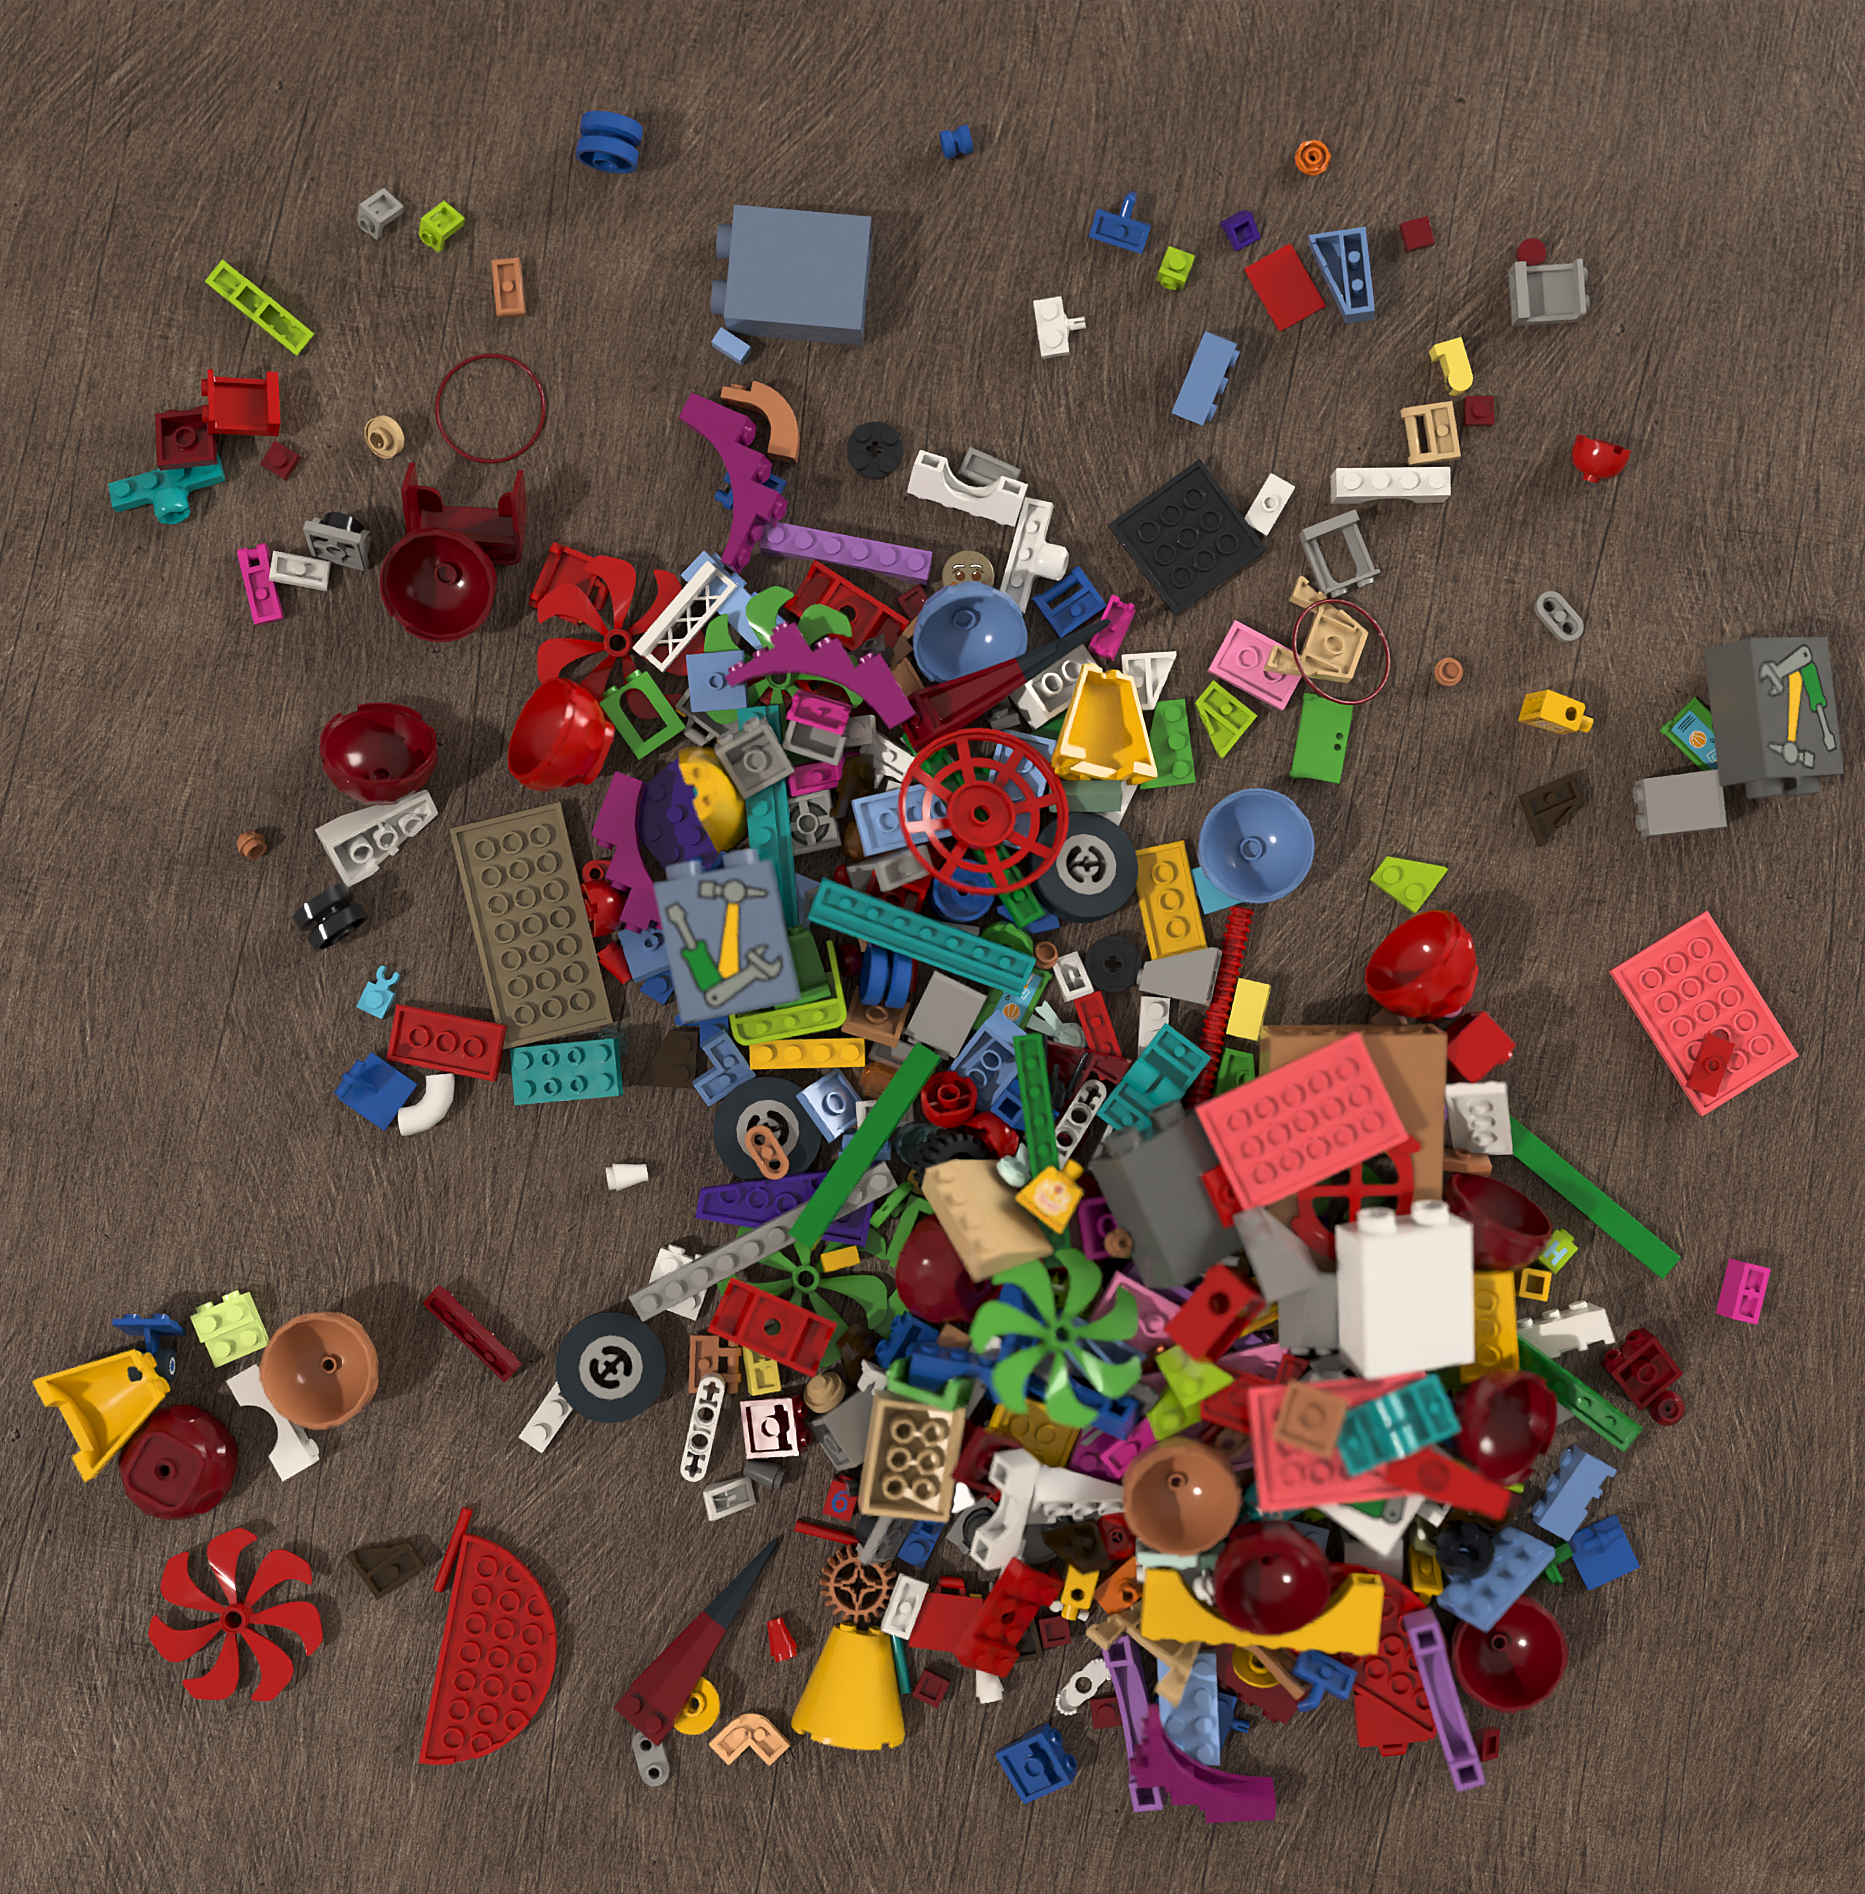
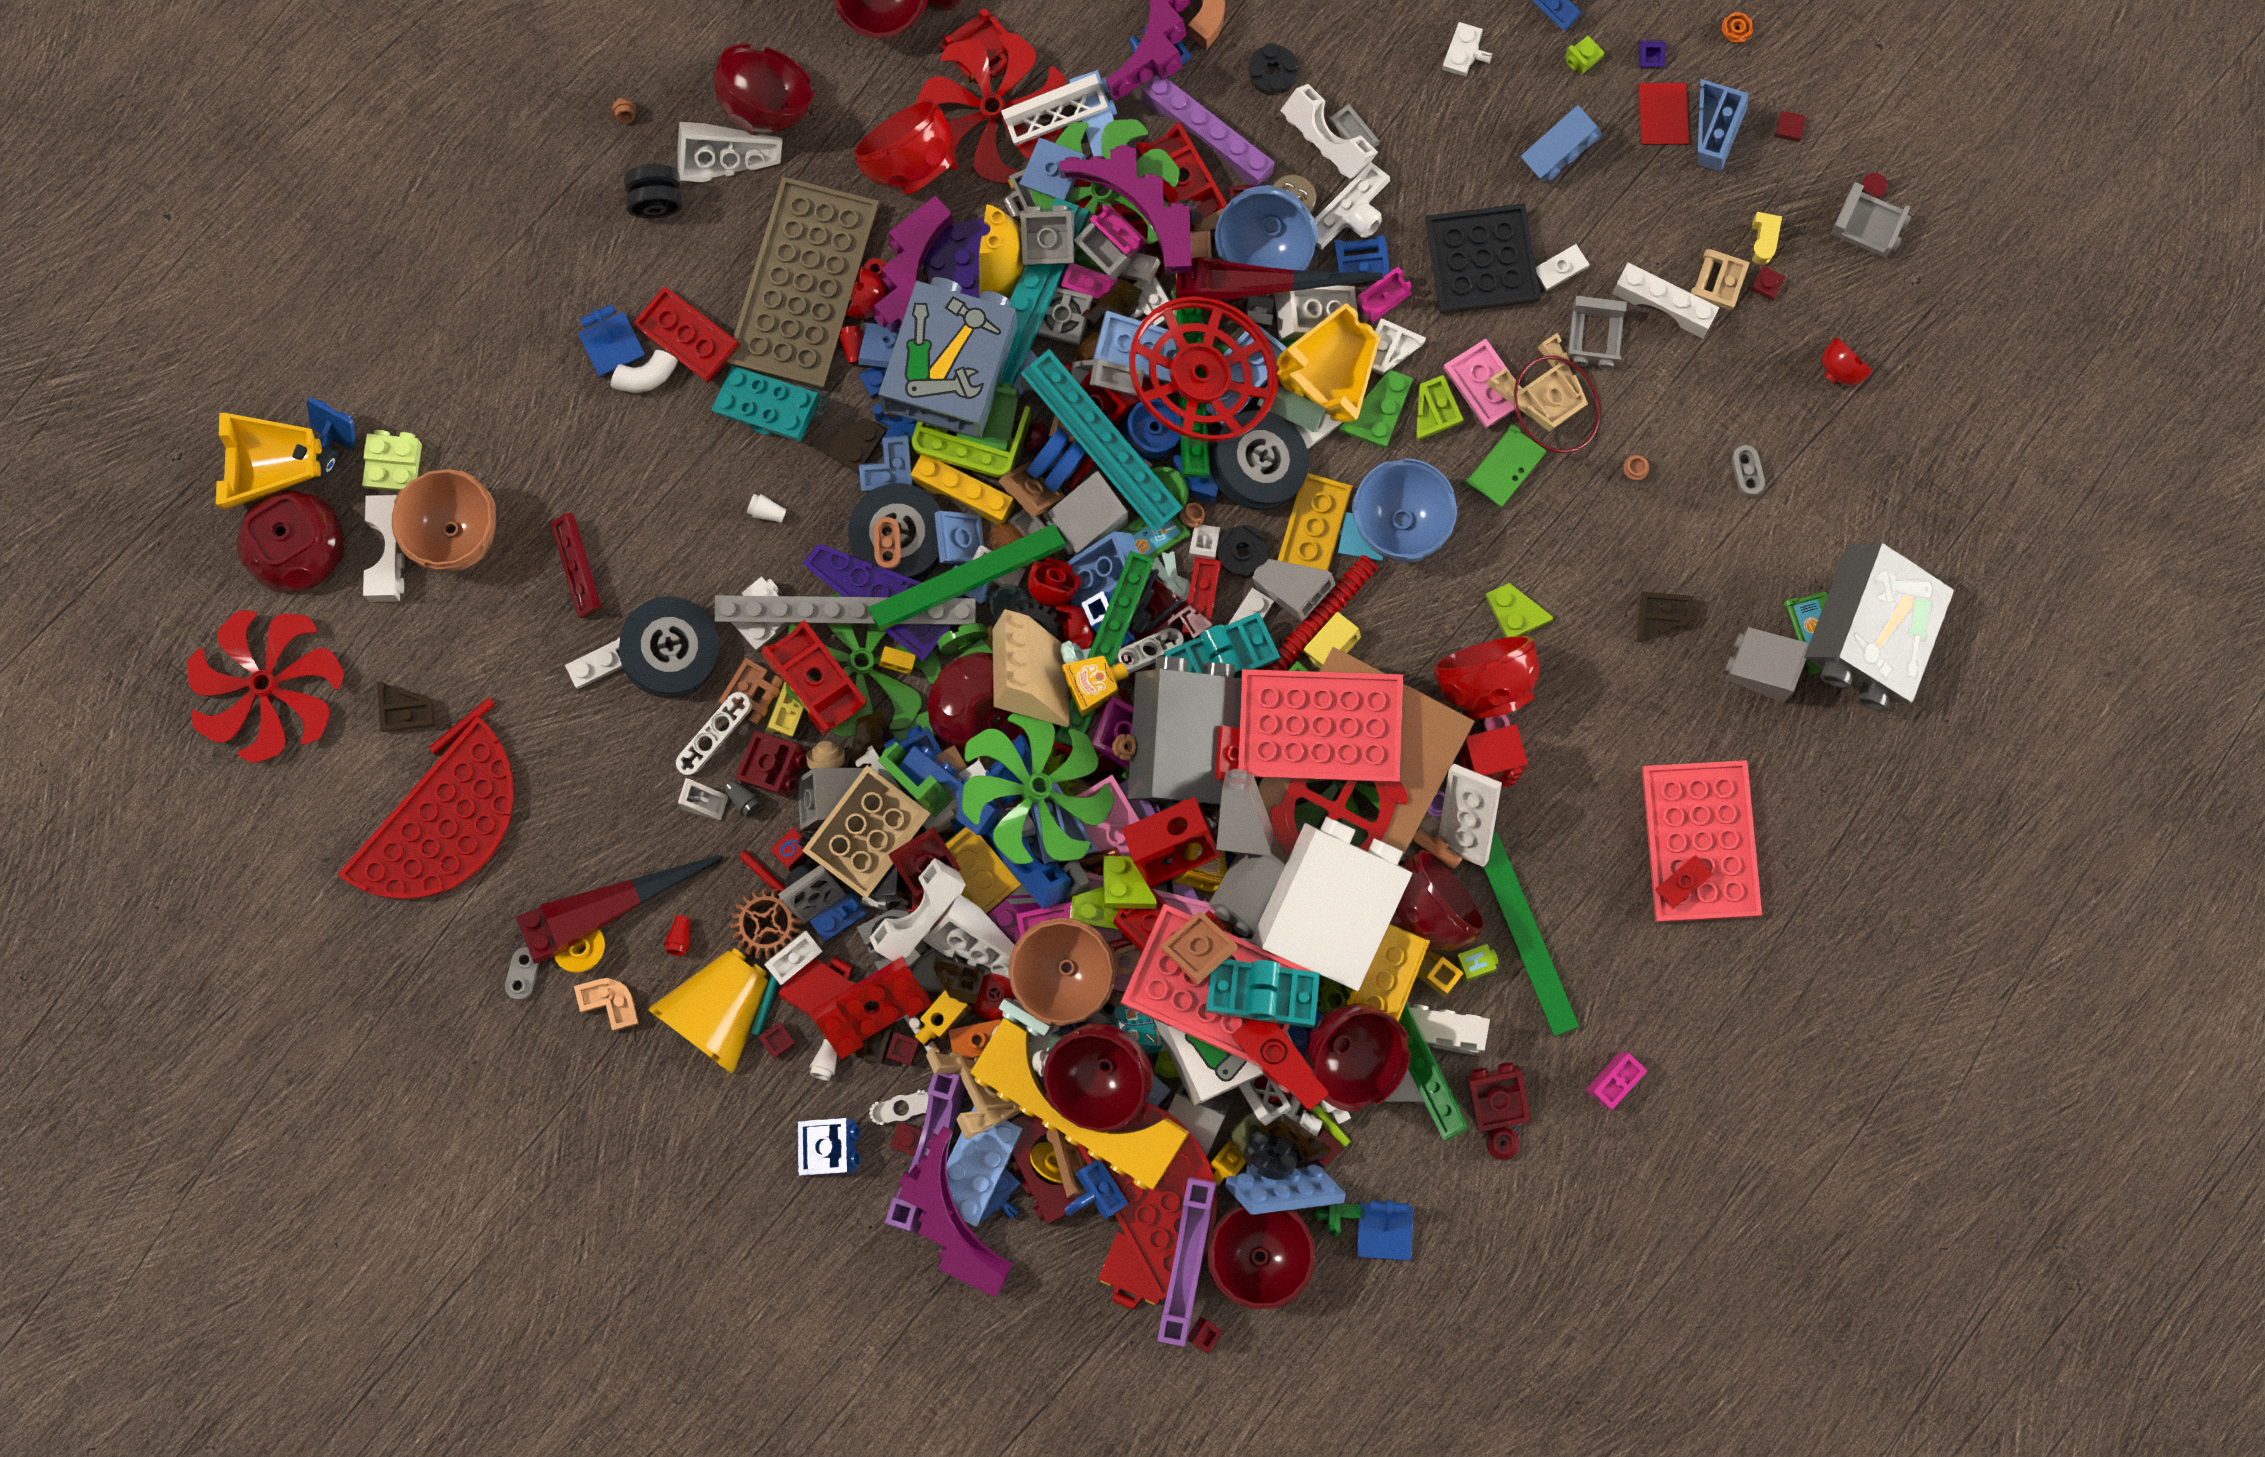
camera: 30 degrees right, 10 degrees down
(377, 997) = (652, 274): medium azure plate -> none
(646, 684) = (986, 193): bright green panel -> none
(1554, 713) = (1704, 541): yellow torso -> none
(1570, 1492) = (1385, 1164): medium blue wedge -> none

